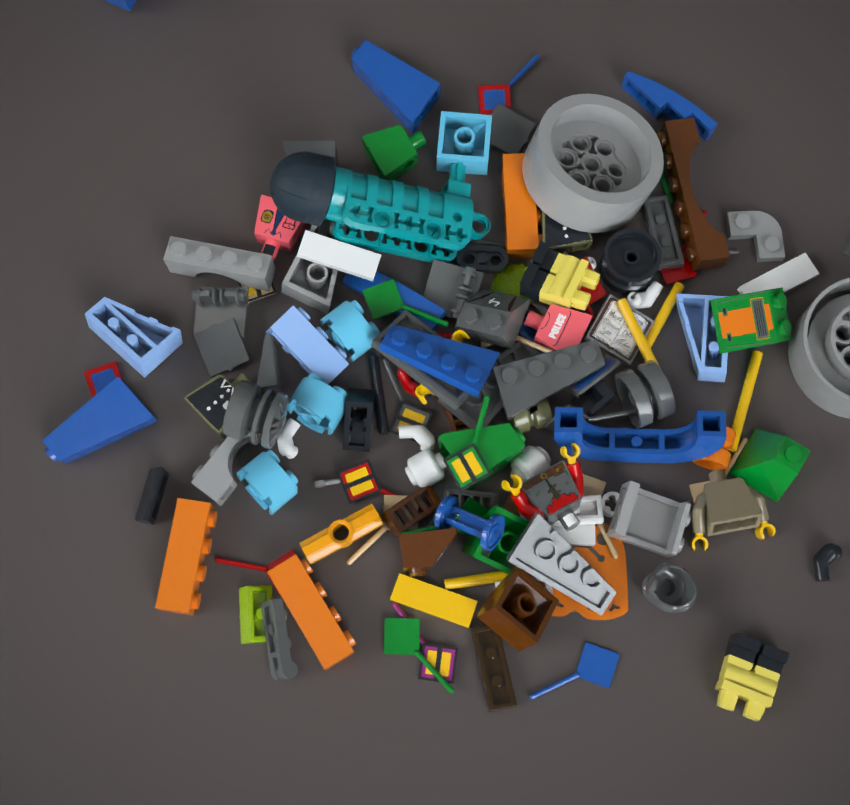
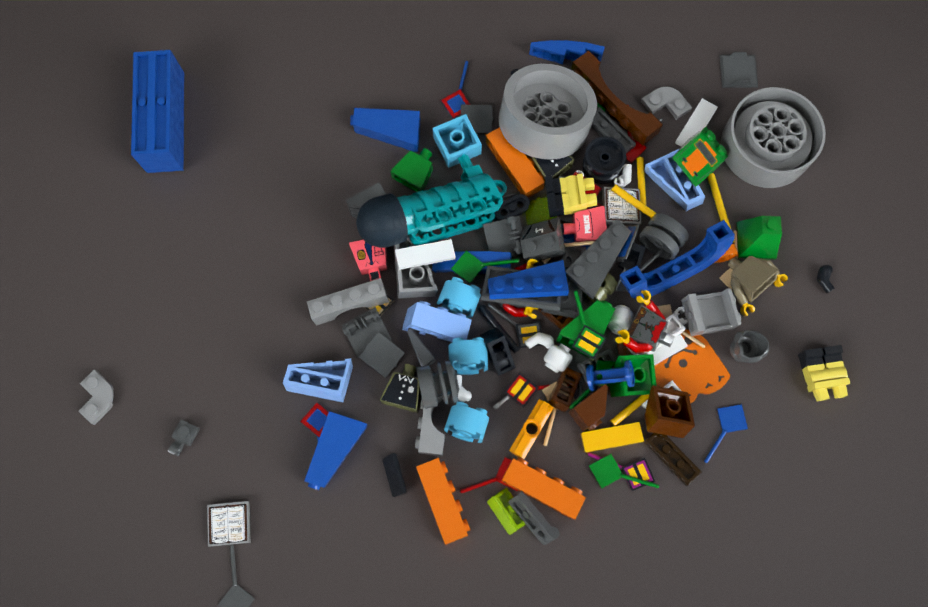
camera: 30 degrees left, 0 degrees up
(554, 561) = (670, 369): wing -> none

